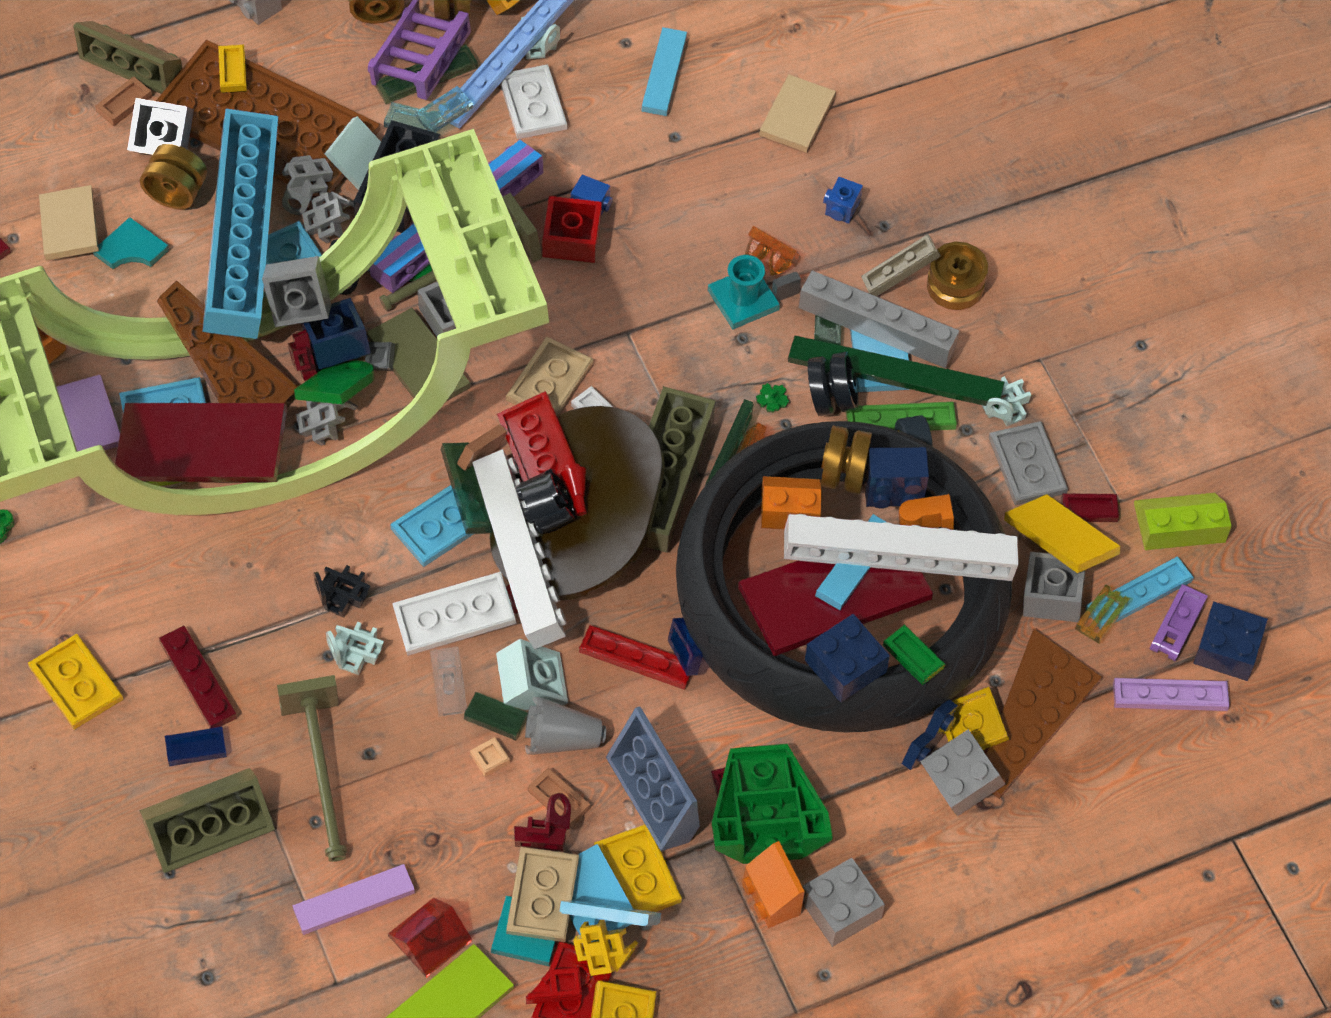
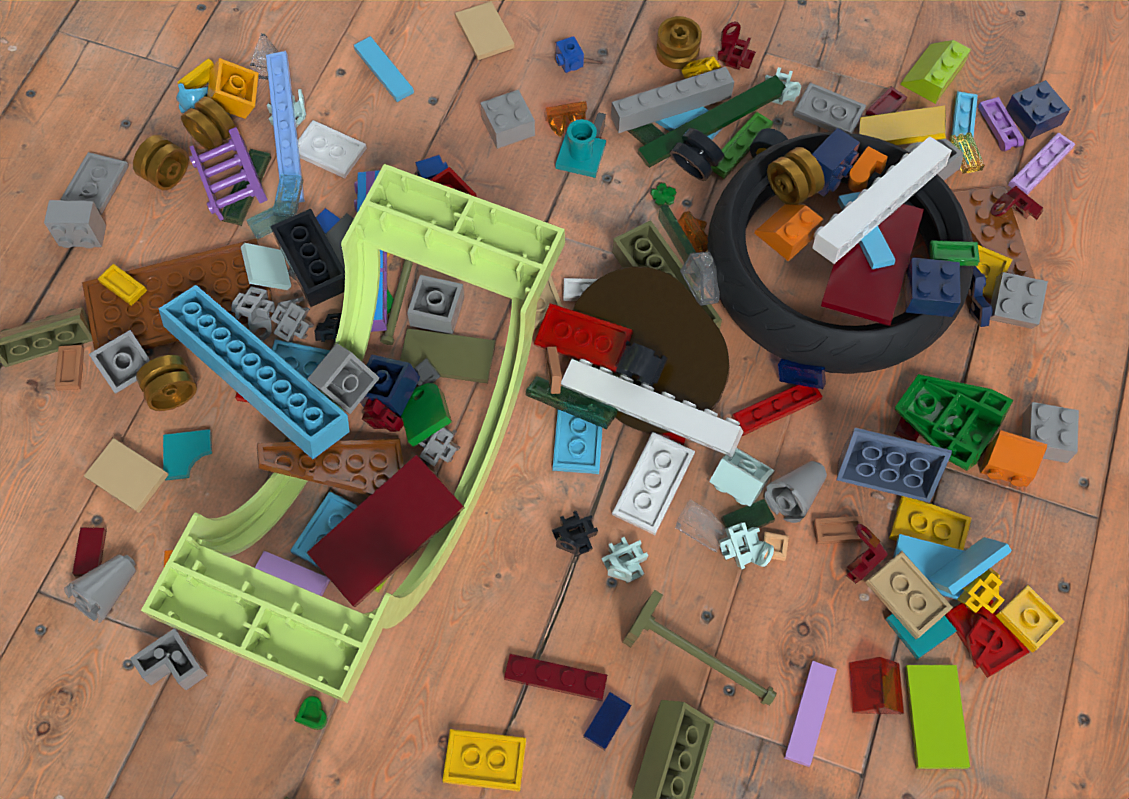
camera: 45 degrees left, 5 degrees up
(465, 726) = (755, 549): none -> light aqua piece
(574, 481) = (640, 336): red cone -> none
(688, 484) = (701, 277): none -> clear slope
(713, 208) = (507, 119): none -> light grey brick
(900, 266) = (647, 61): dark tan tile -> none
(955, 318) = (700, 66): none -> yellow piece
(1010, 319) = (729, 53): none -> dark red piece
(1086, 698) = (1020, 201): none -> dark red piece

